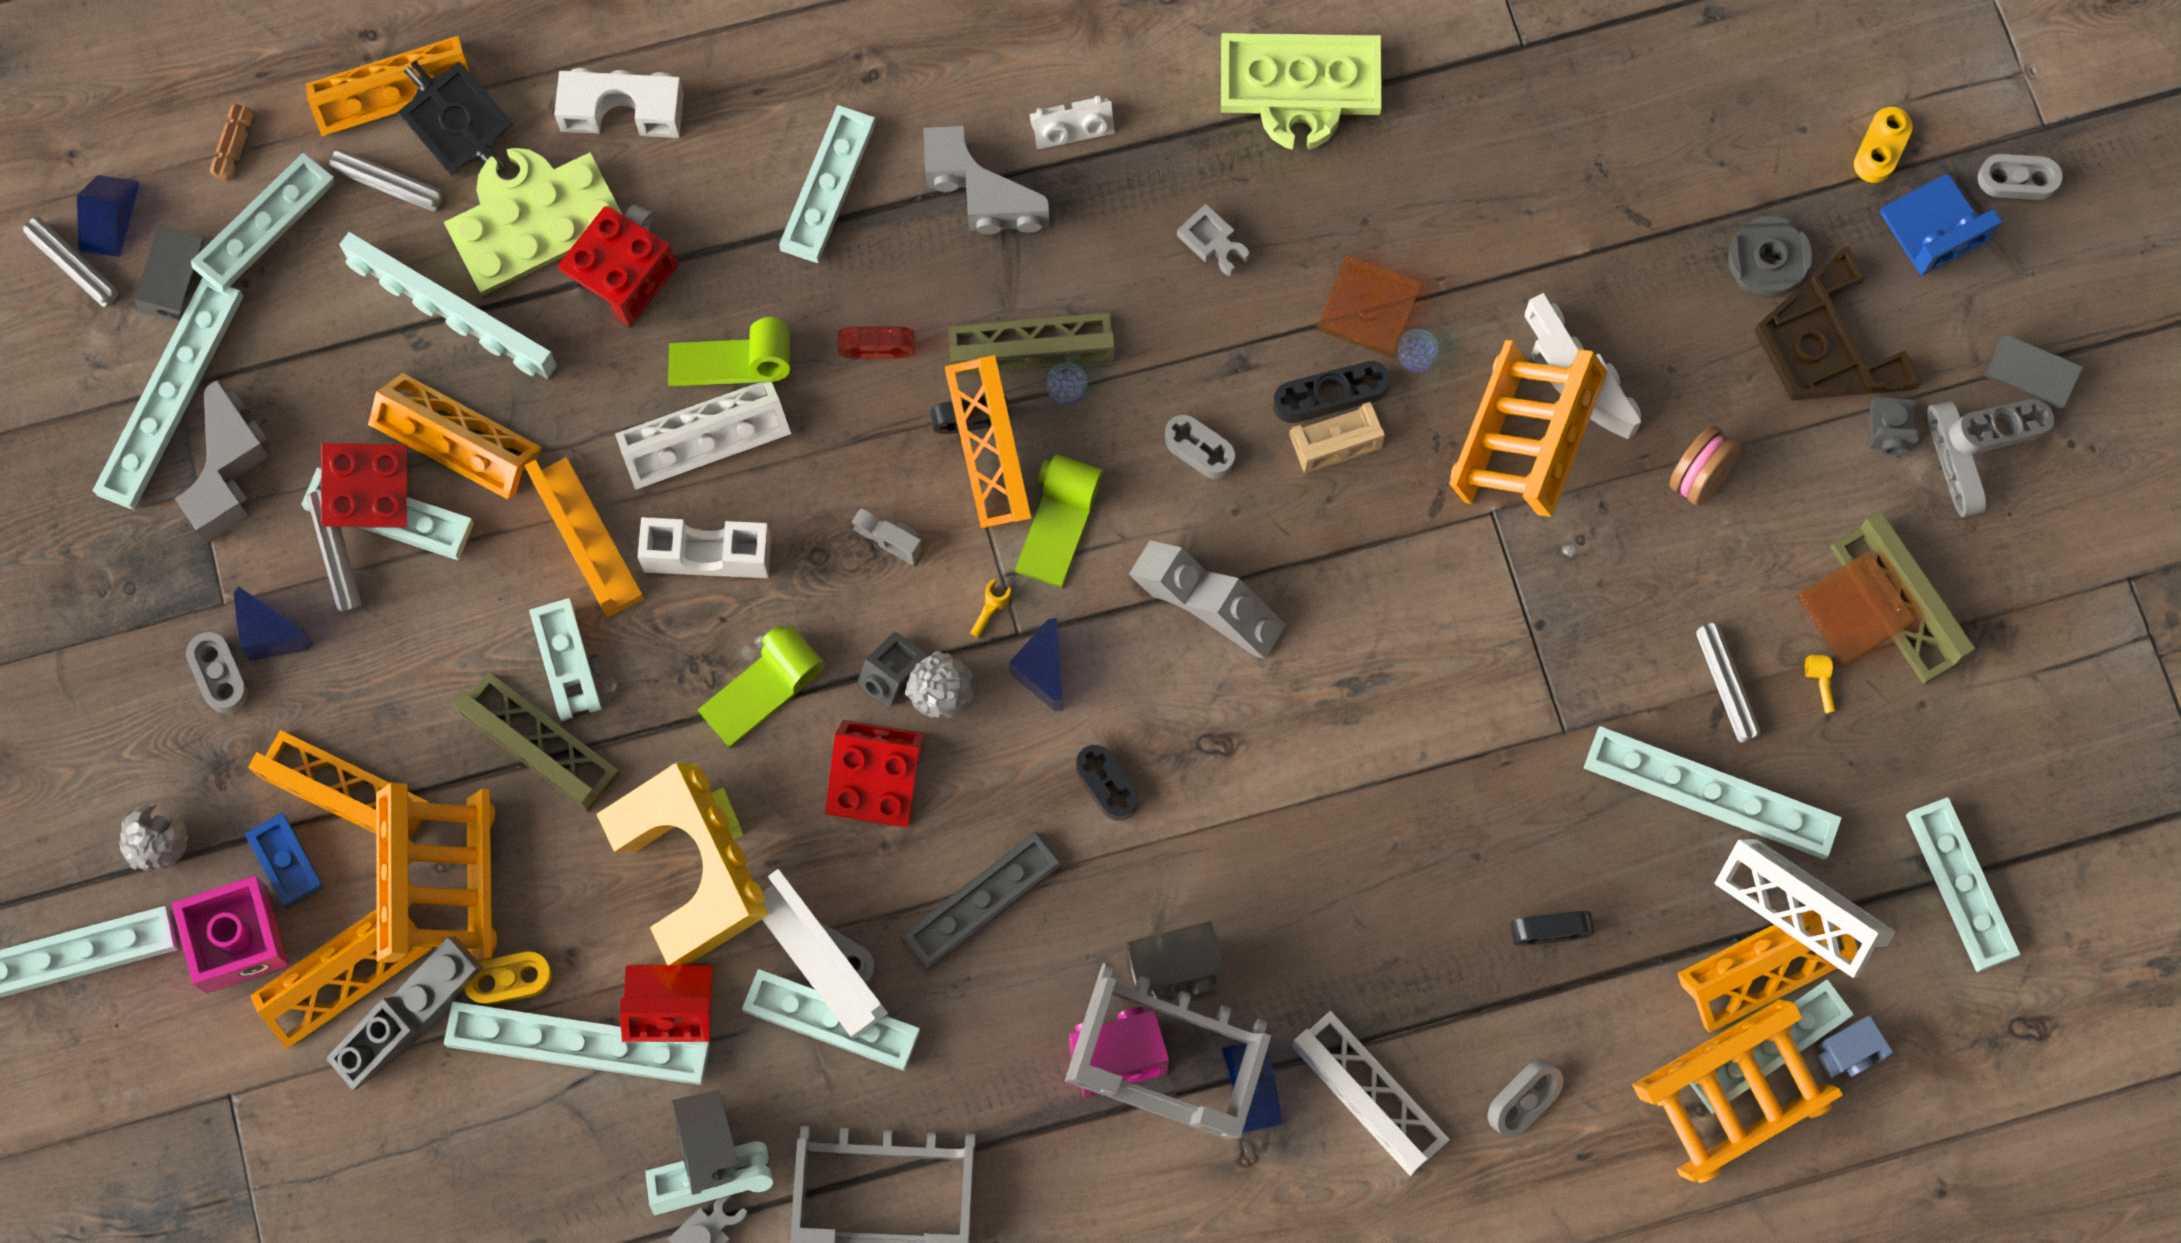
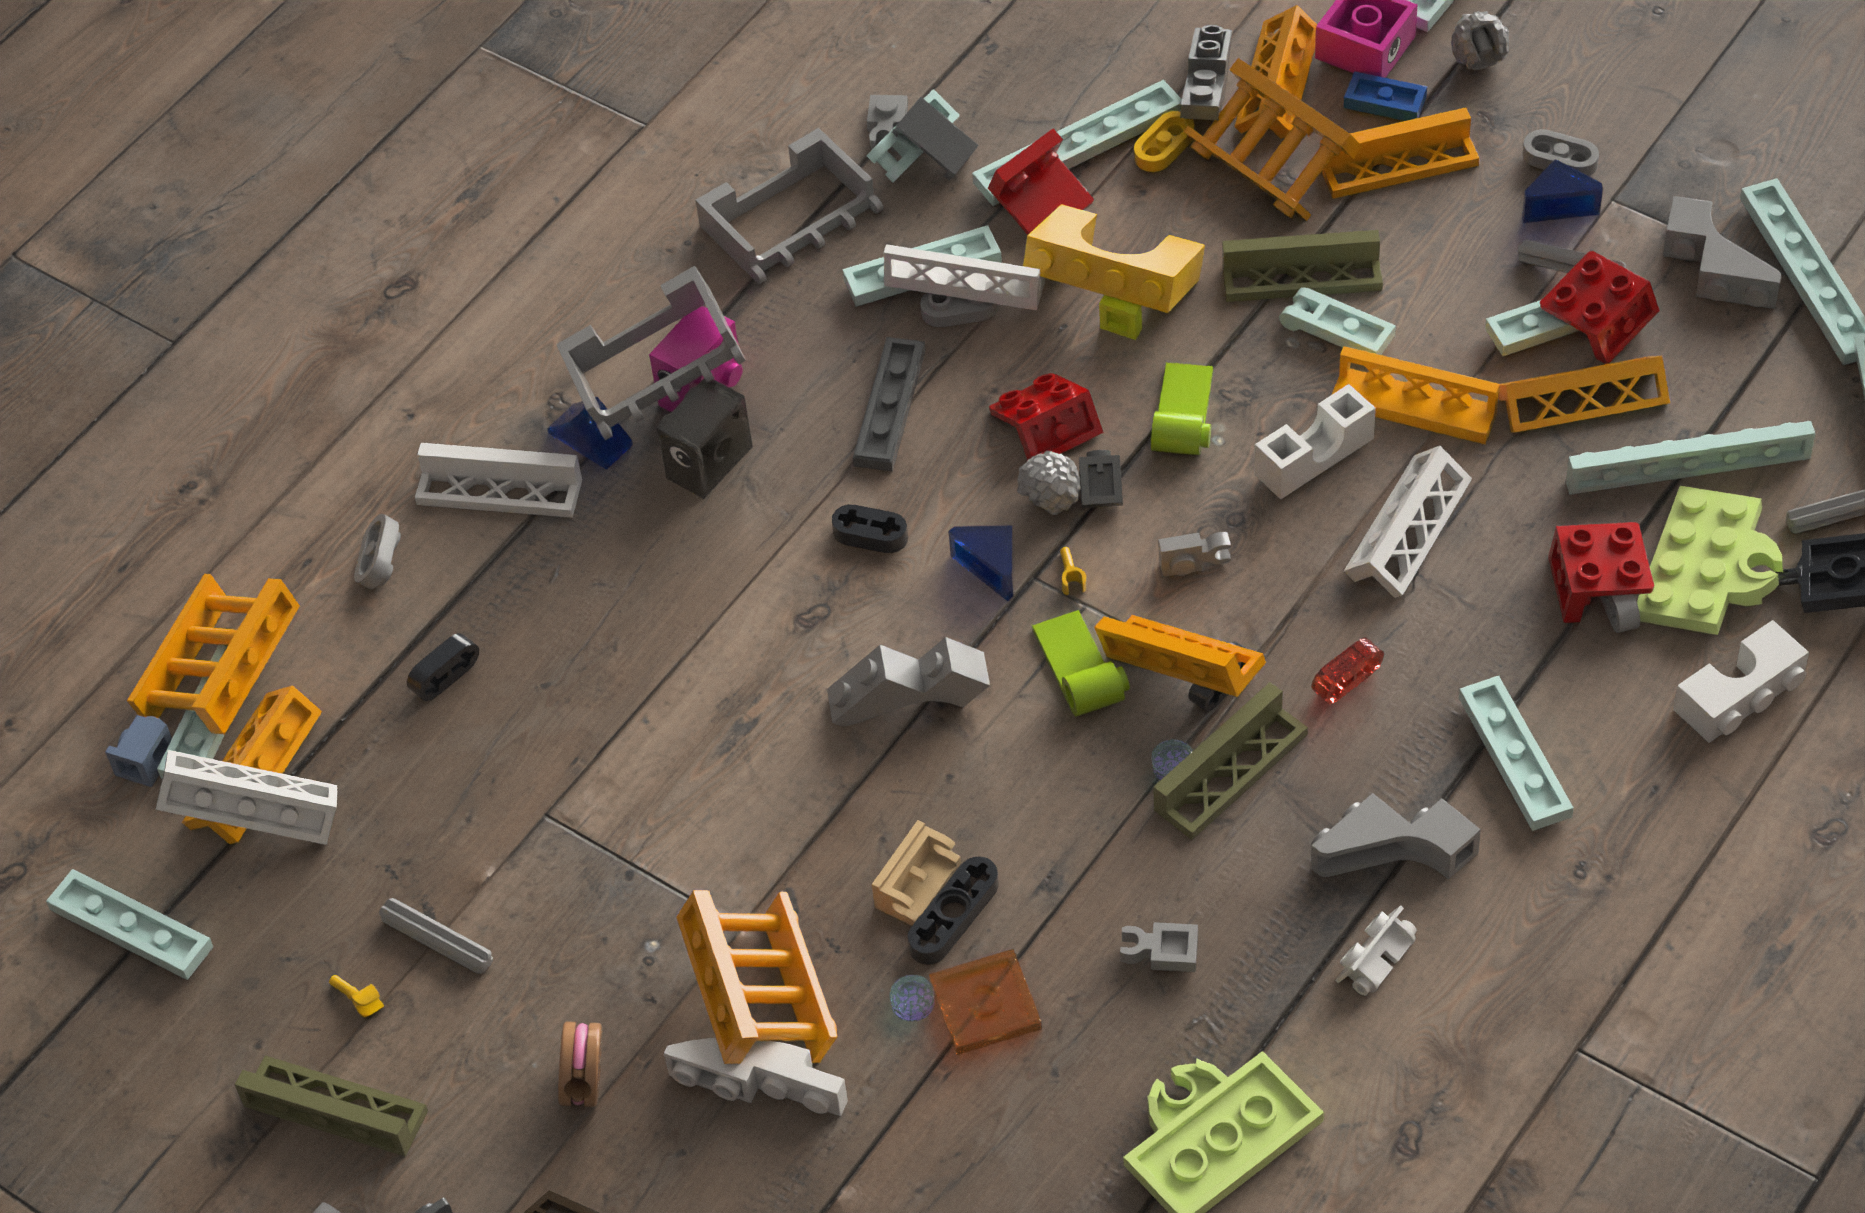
camera: 145 degrees right, 20 degrees down
(754, 360) = (1445, 581): lime door -> none
(1194, 454) = (1021, 792): light grey beam -> none
(1712, 793) = (386, 844): light aqua plate -> none
(1855, 608) = (366, 1064): clear orange tile -> none

